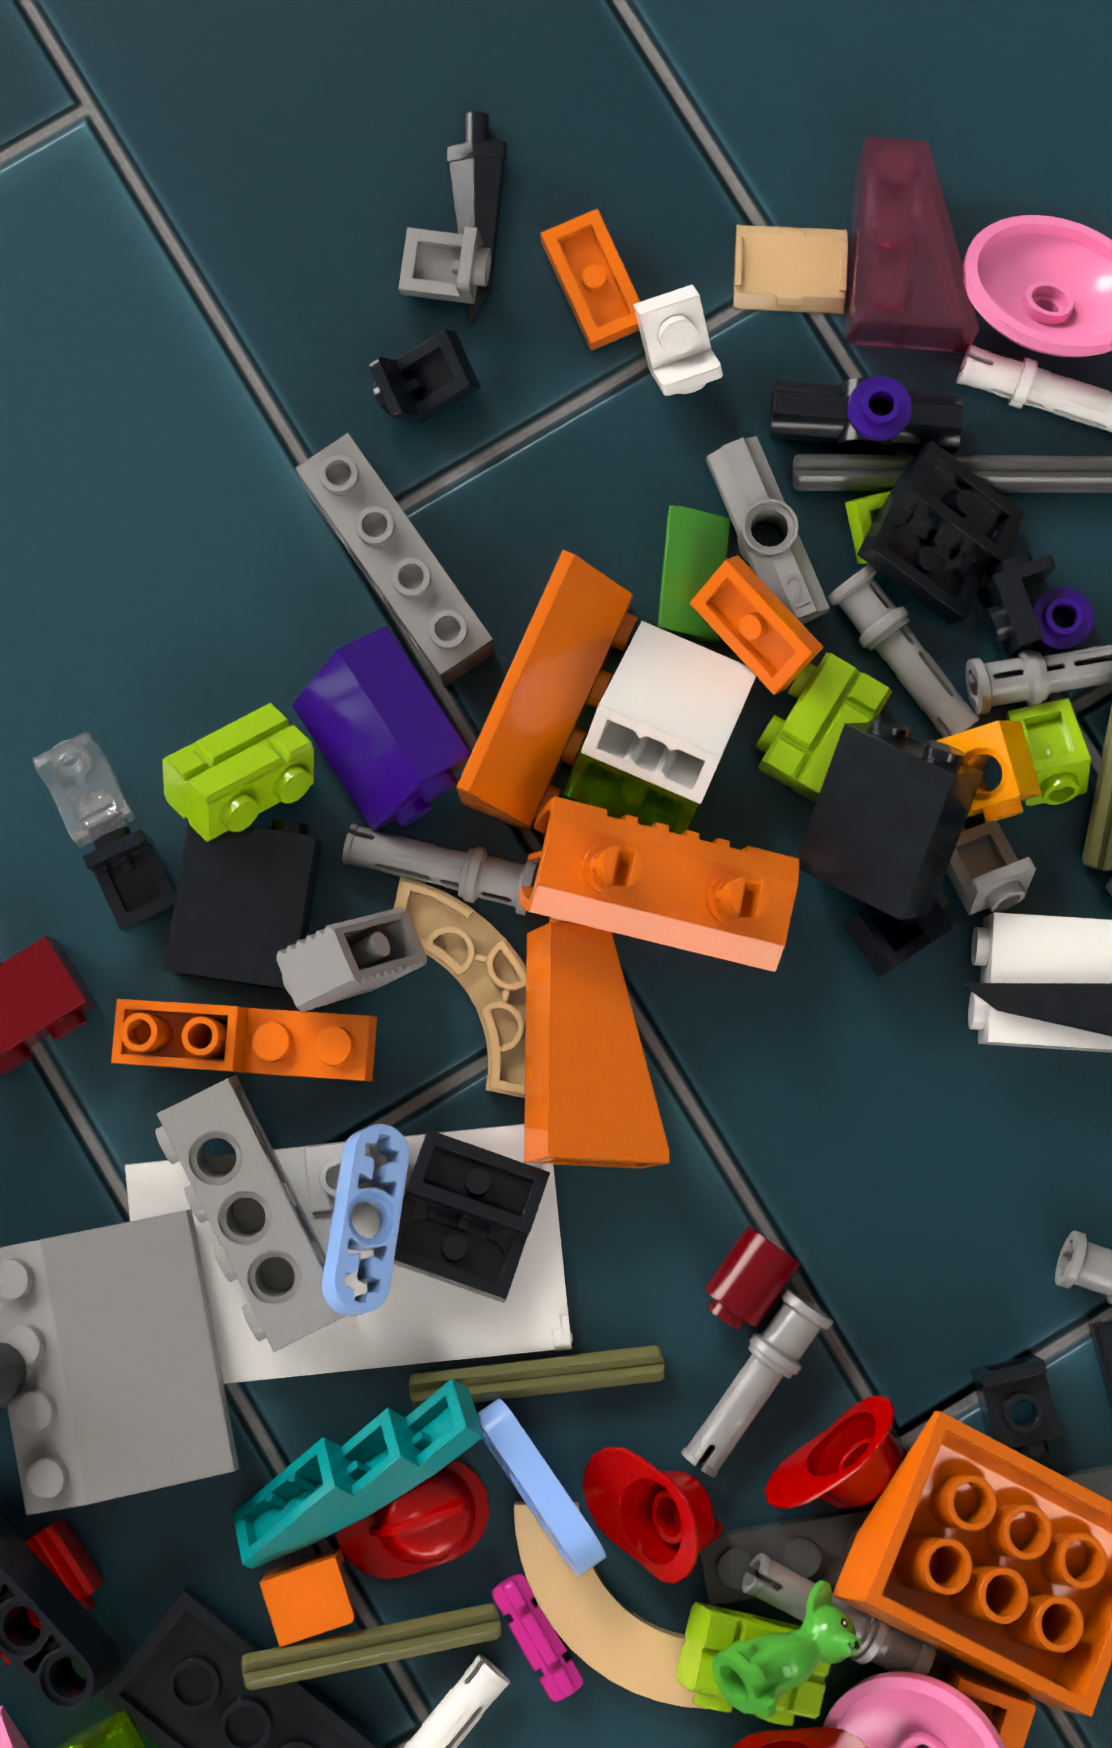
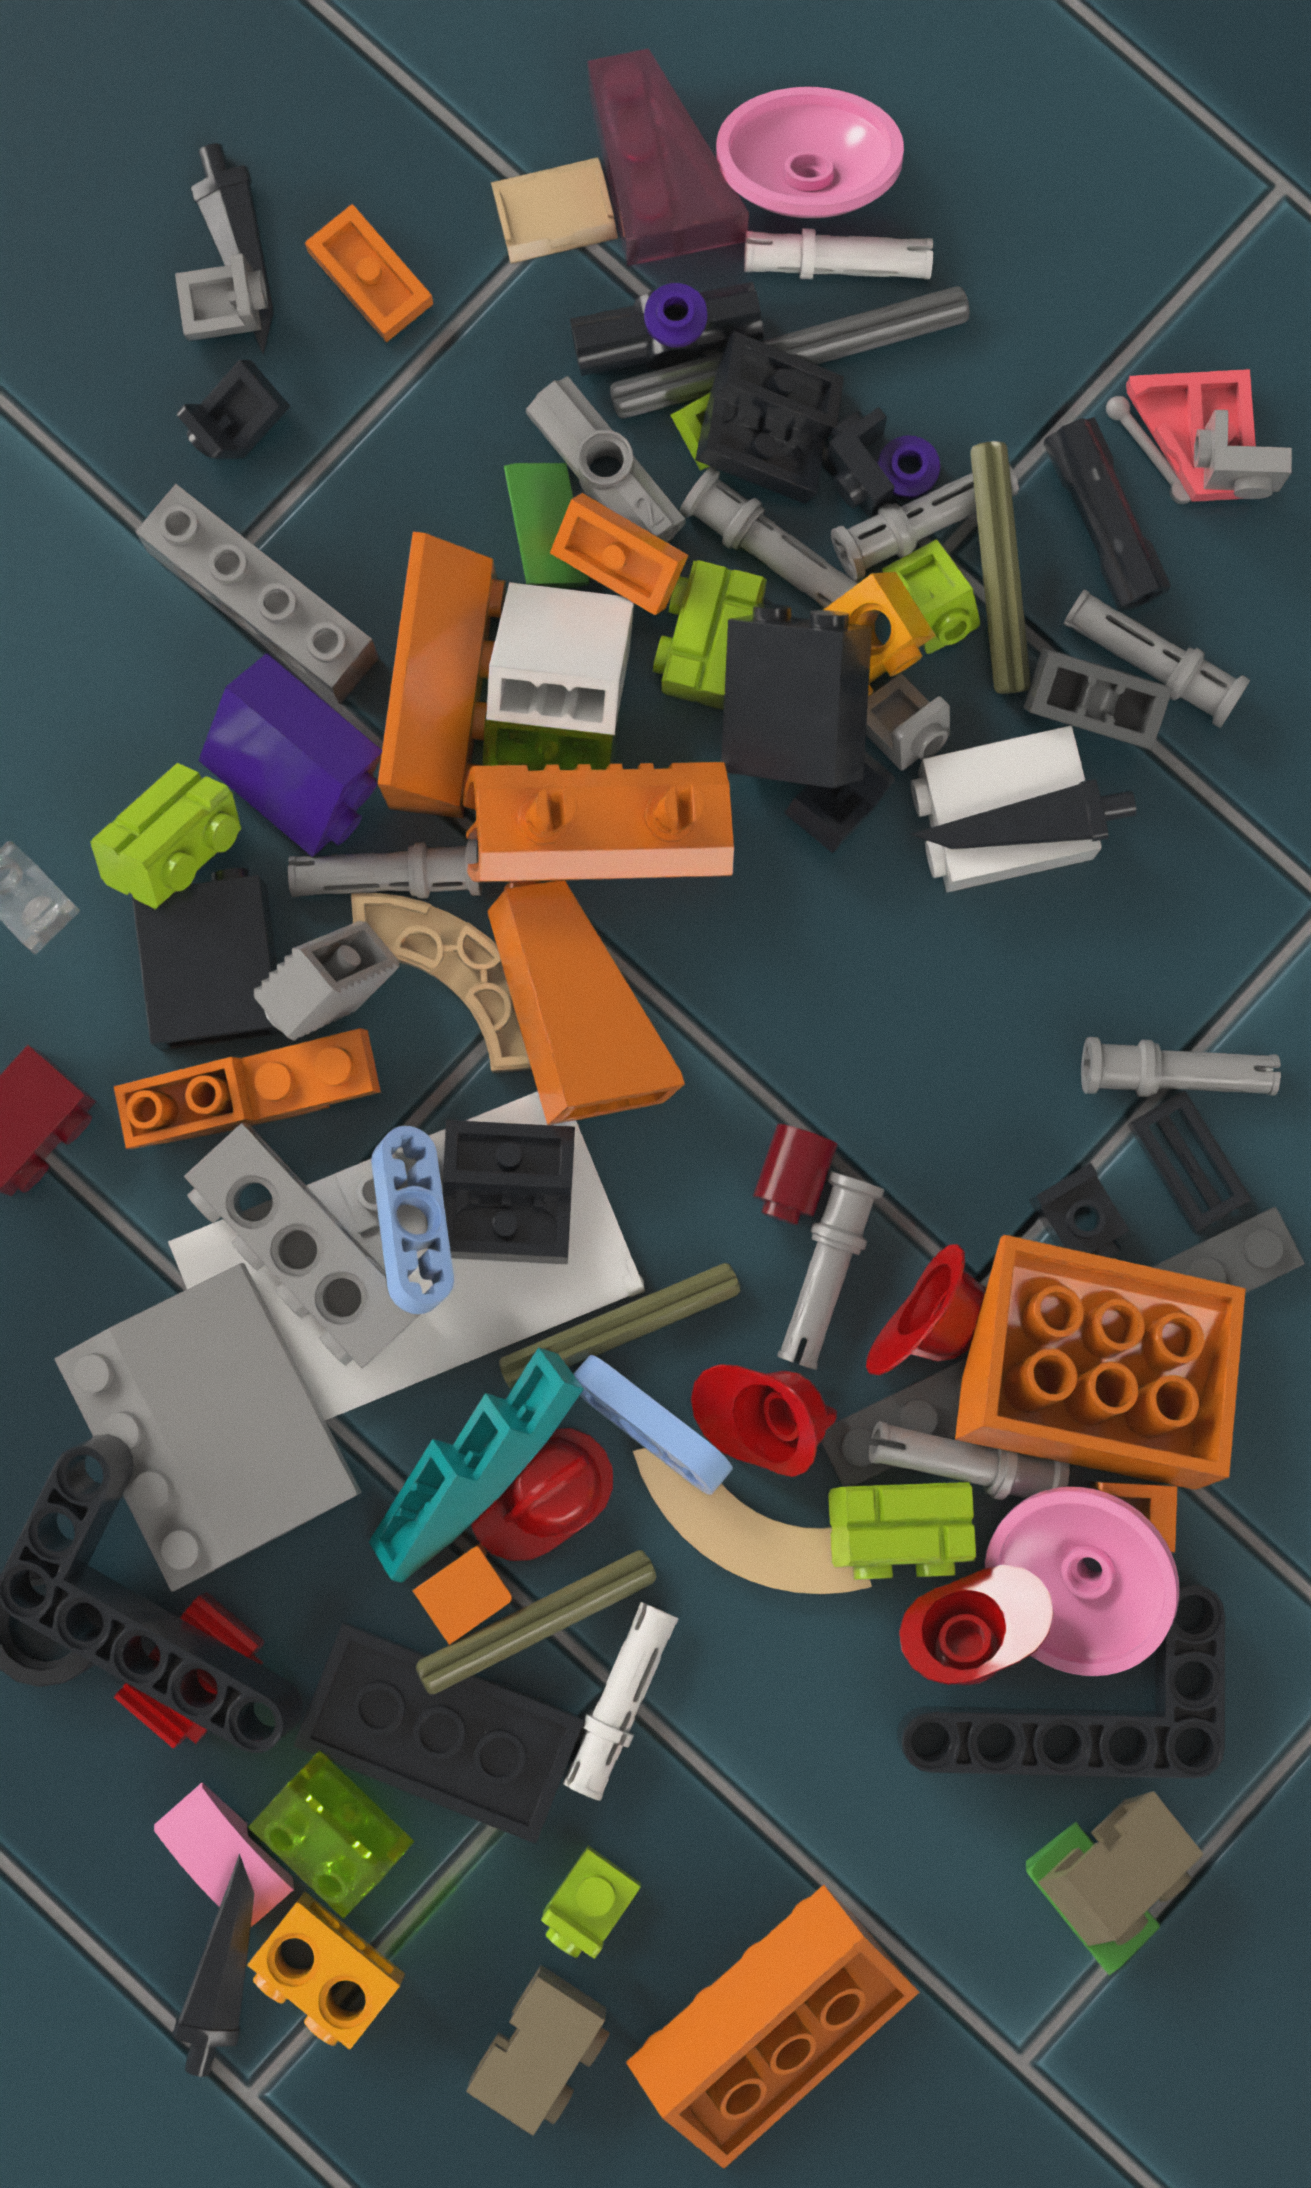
camera: 15 degrees left, 0 degrees up
(131, 876) = (93, 967): black bracket -> none
(537, 1638) = (691, 1569): dark pink axle -> none
(677, 341) = (465, 308): white bracket -> none
(768, 1666) = (902, 1527): bright green animal -> none

